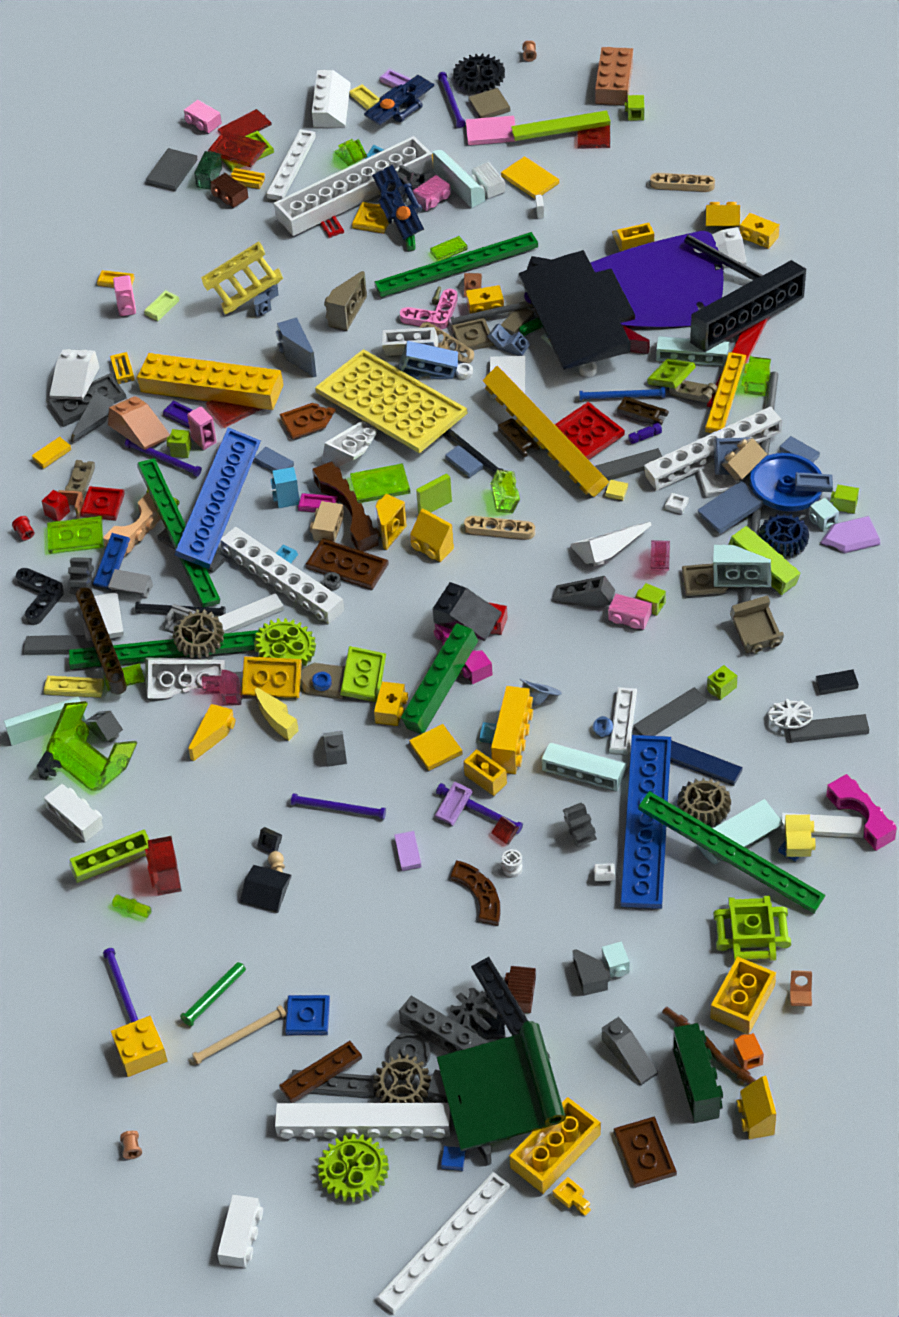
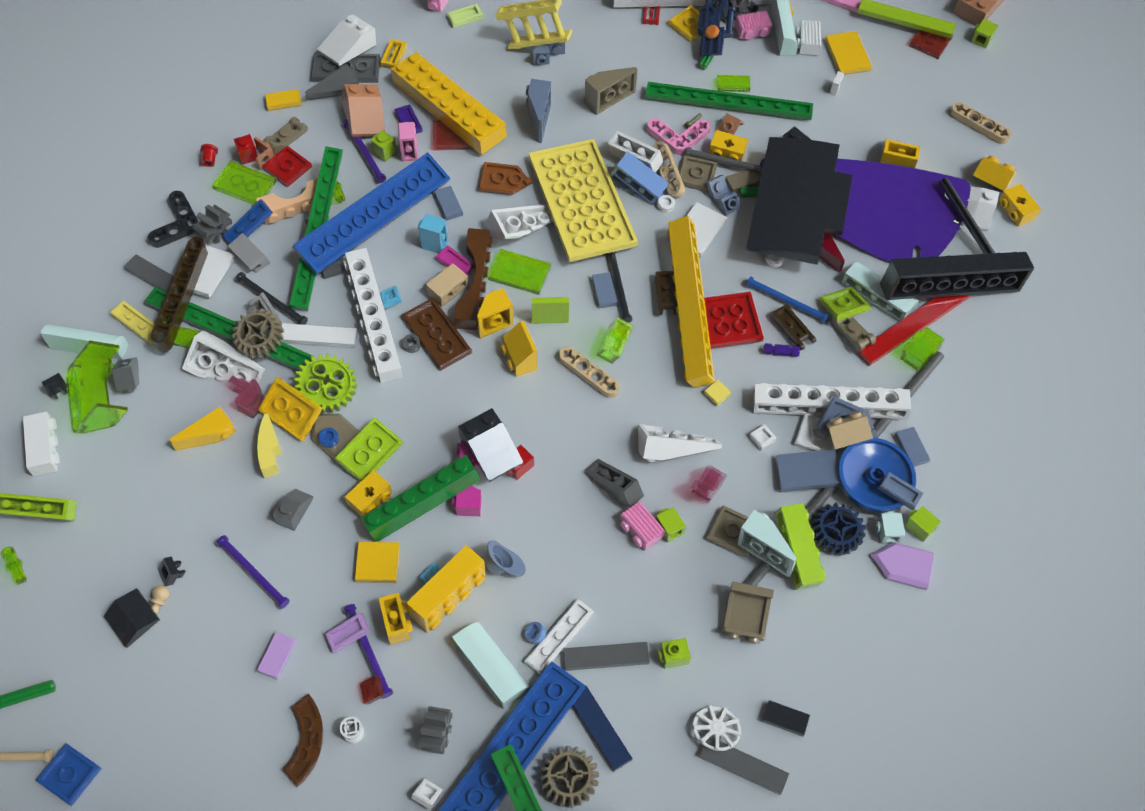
camera: 25 degrees right, 10 degrees up
(163, 866) = (61, 544): clear red brick -> none
(628, 465) = (745, 373): dark grey tile -> none
(725, 392) = (880, 350): yellow tile -> none

